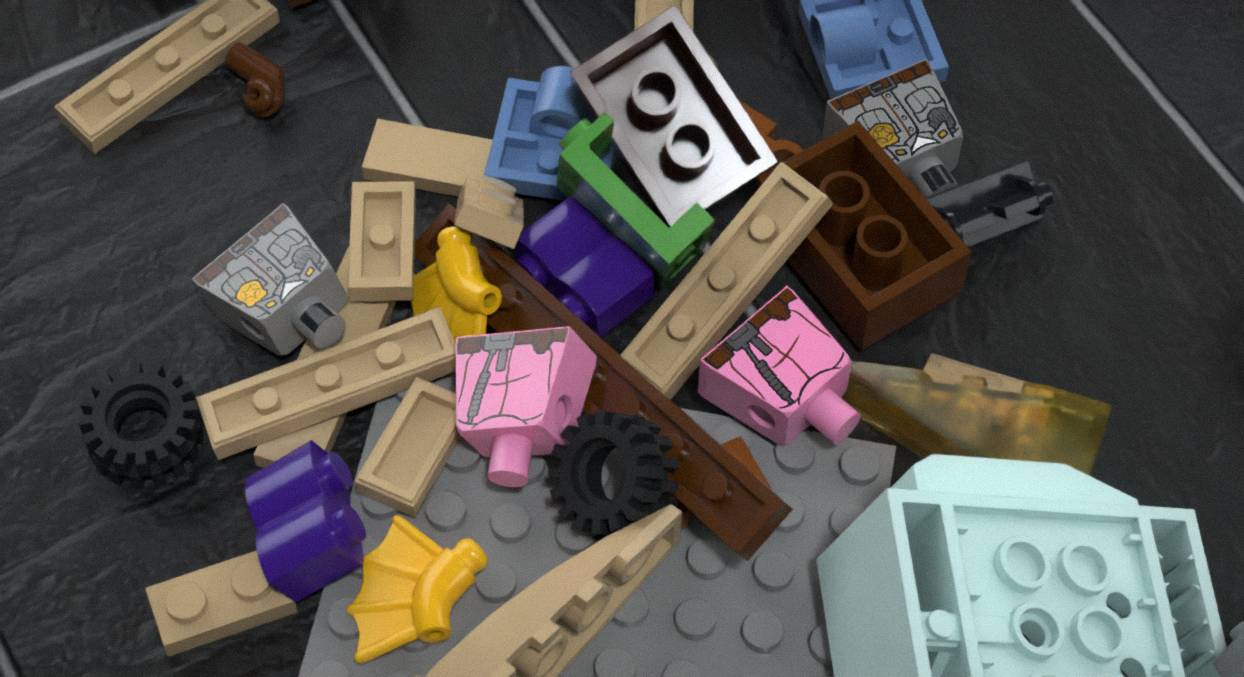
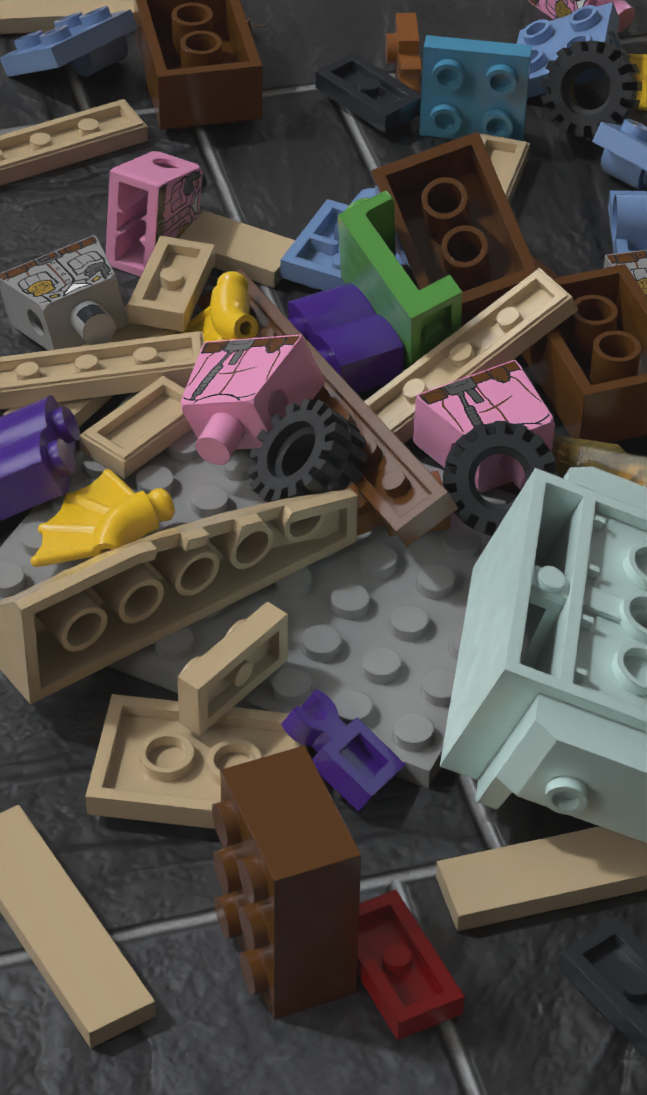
camera: 15 degrees right, 15 degrees down
(264, 79) = (105, 157): reddish brown arm -> none
(328, 115) = (146, 201): none -> bright pink torso
(490, 210) = (272, 271): tan plate -> none
(836, 484) = (475, 447): none -> black tyre

